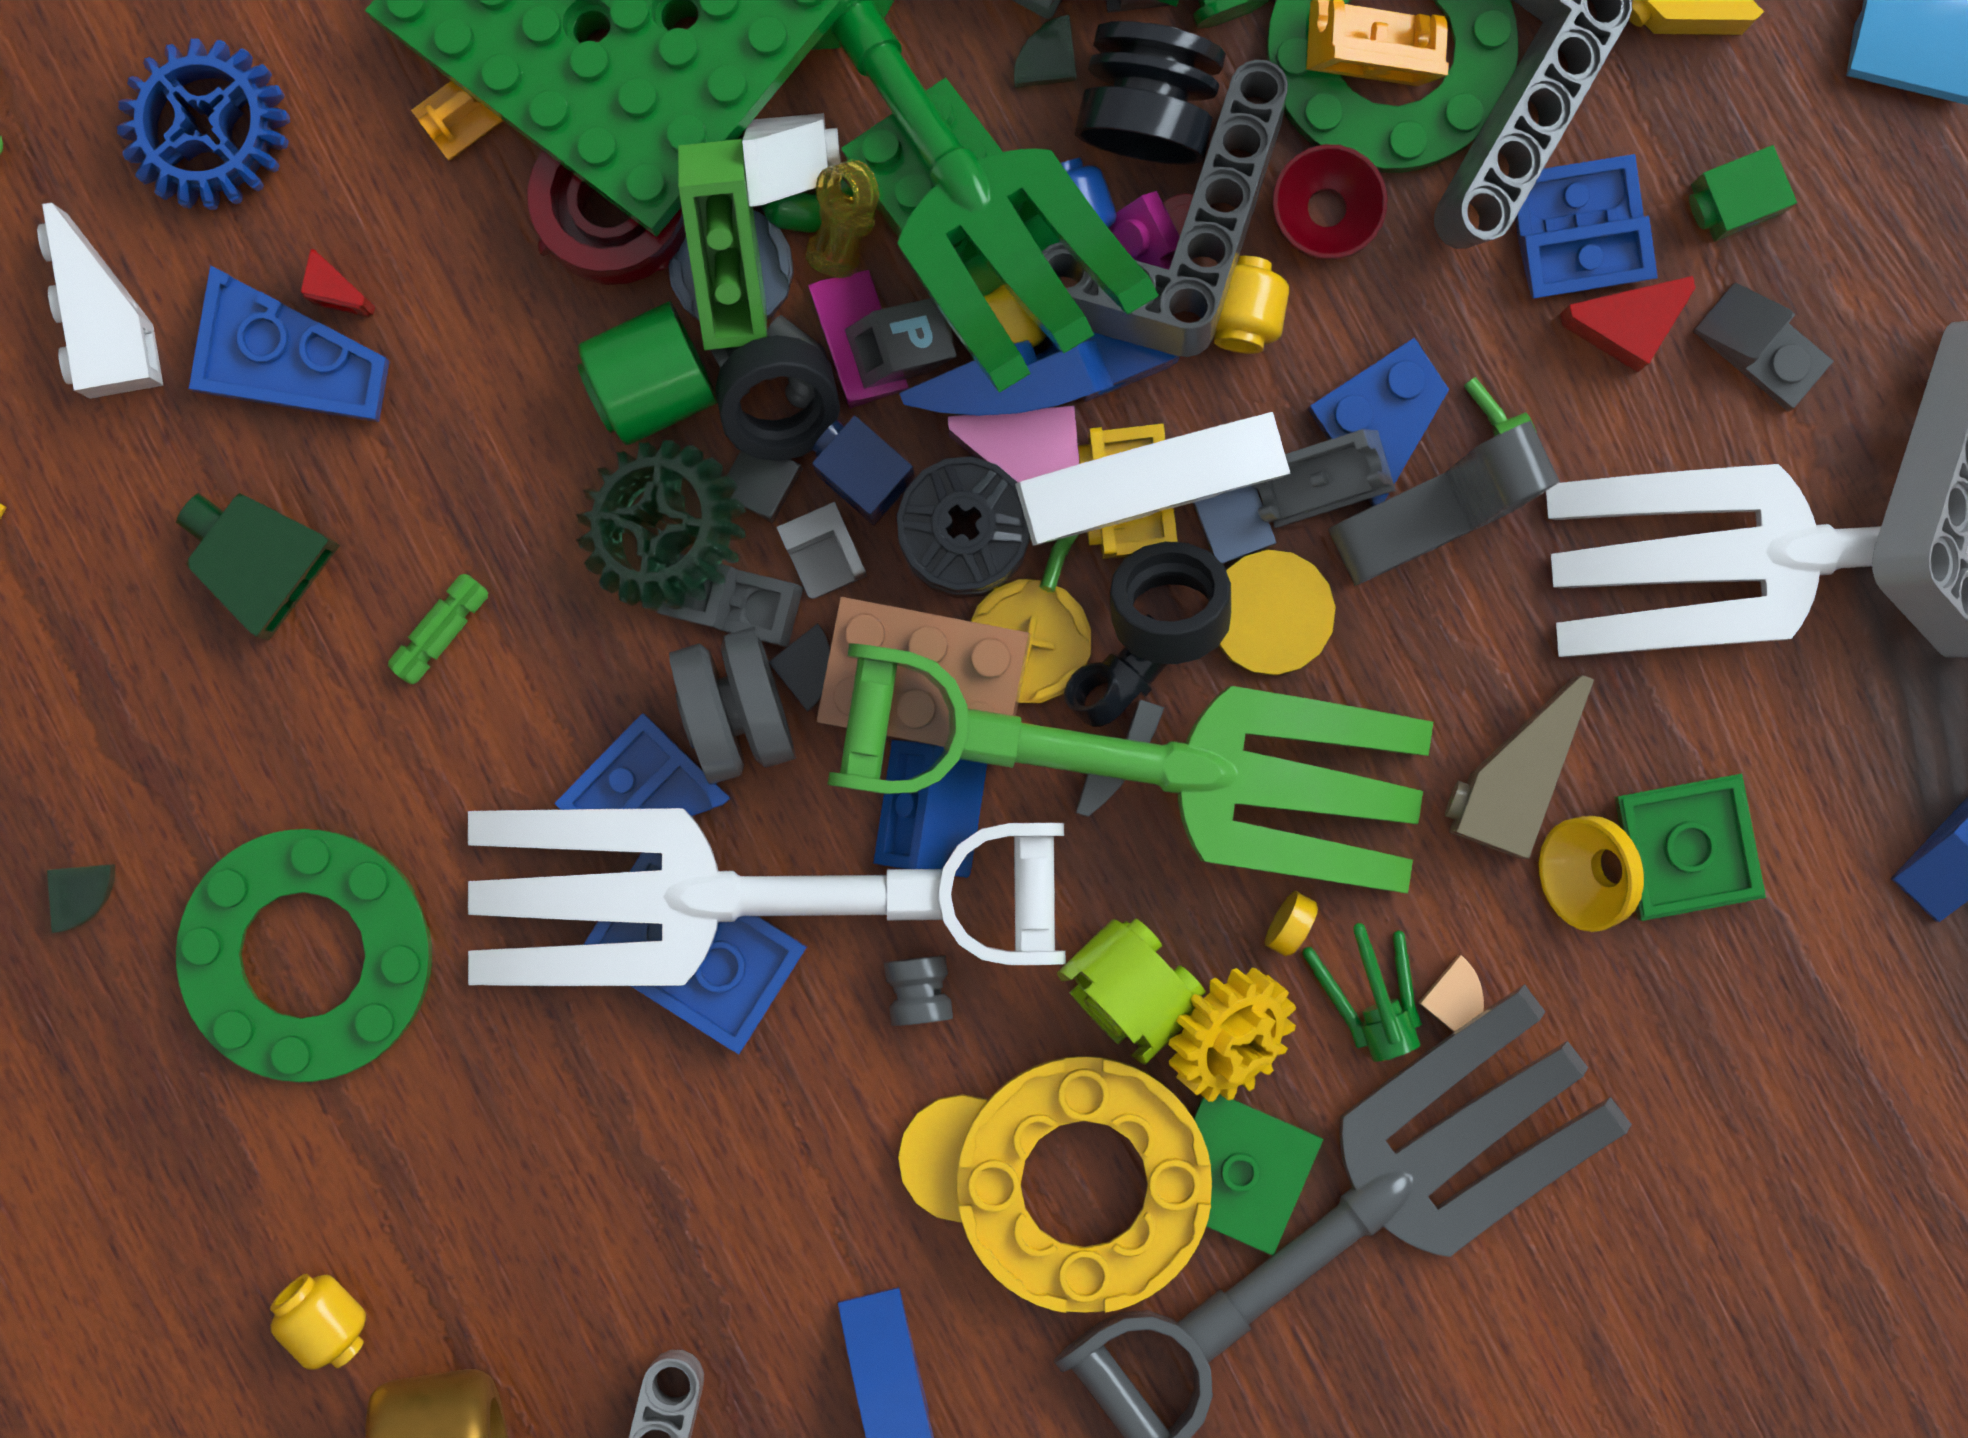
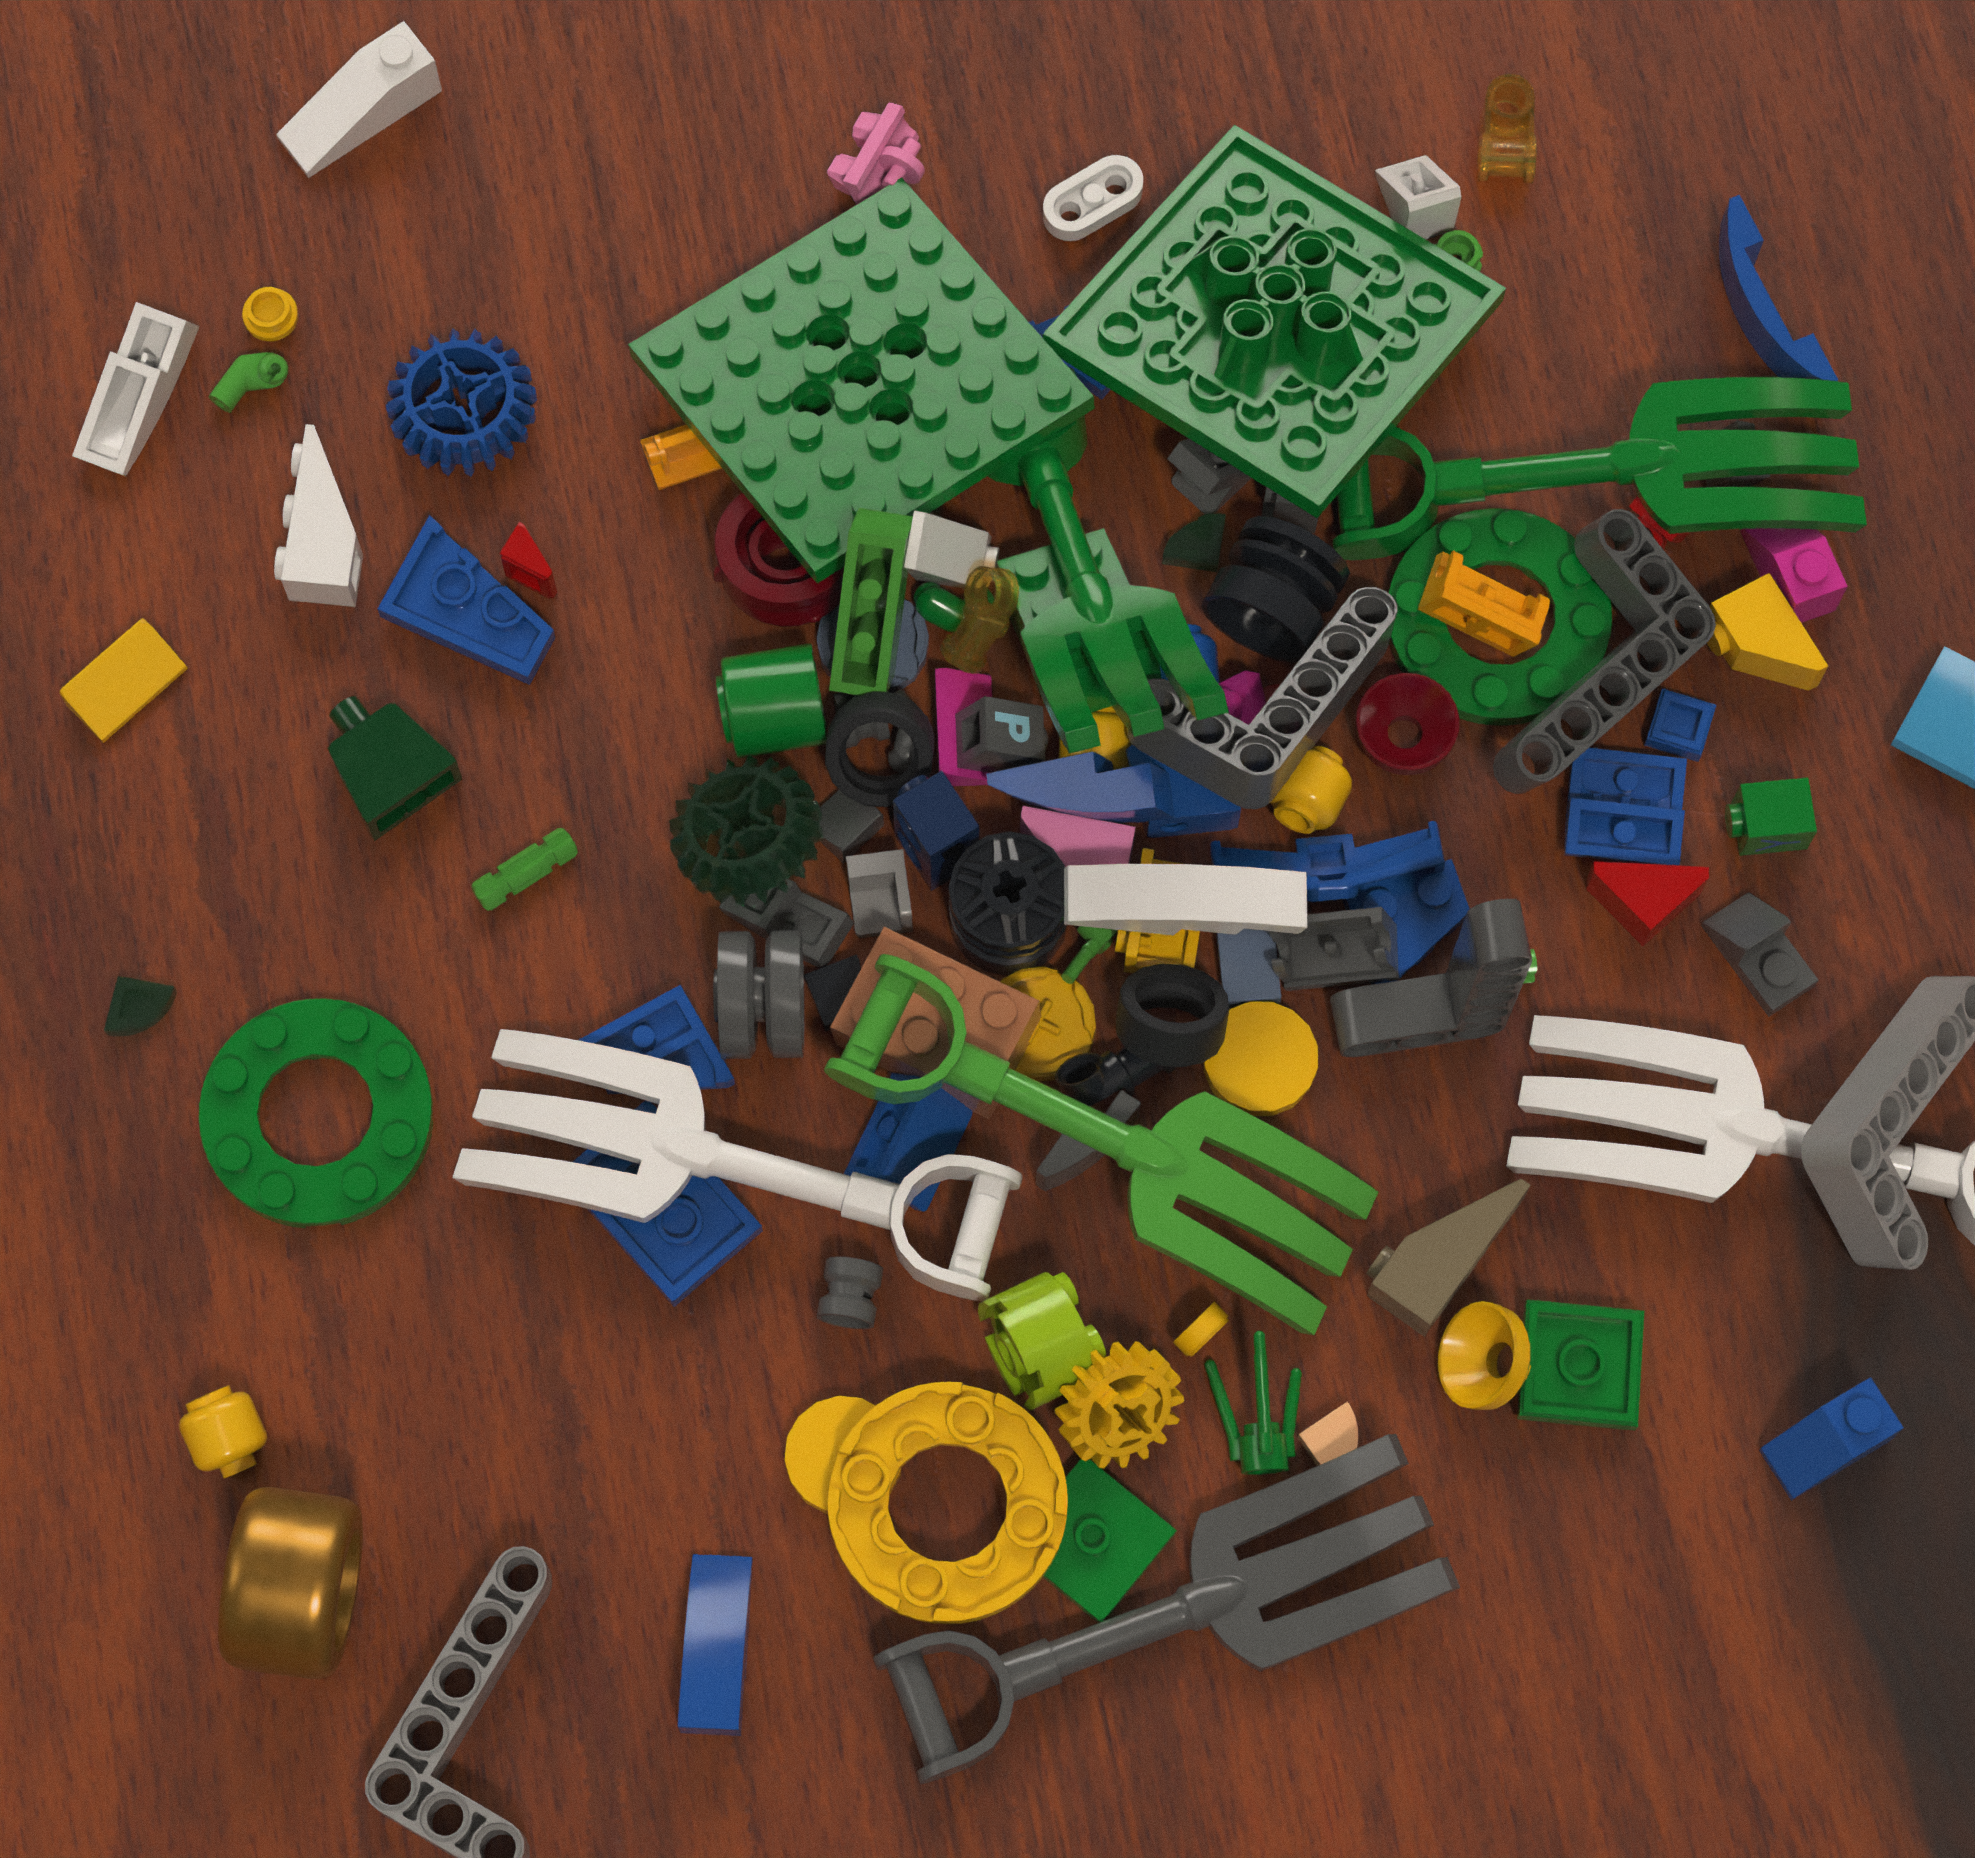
camera: 15 degrees right, 15 degrees down
(1291, 381) = (1337, 867): none -> blue plate
(1617, 115) = (1680, 725): none -> blue tile

